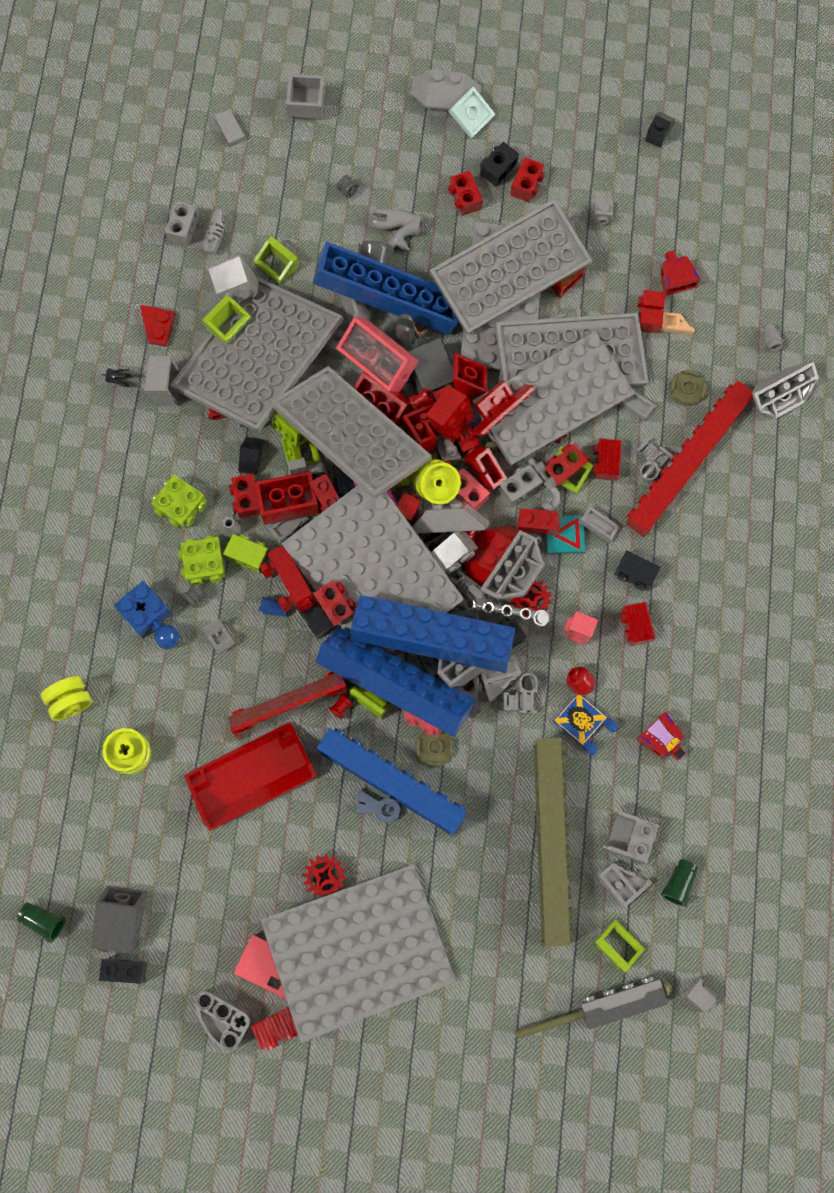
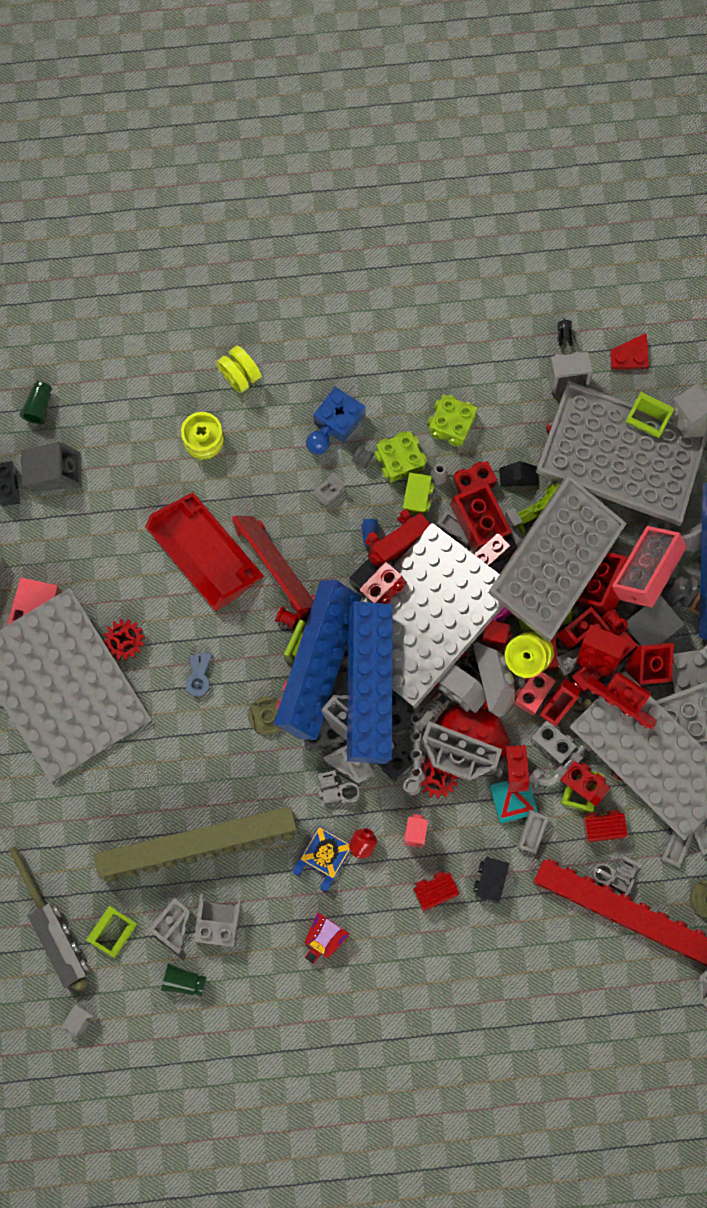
camera: 80 degrees right, 0 degrees up
(391, 781) = (222, 680): blue brick -> none

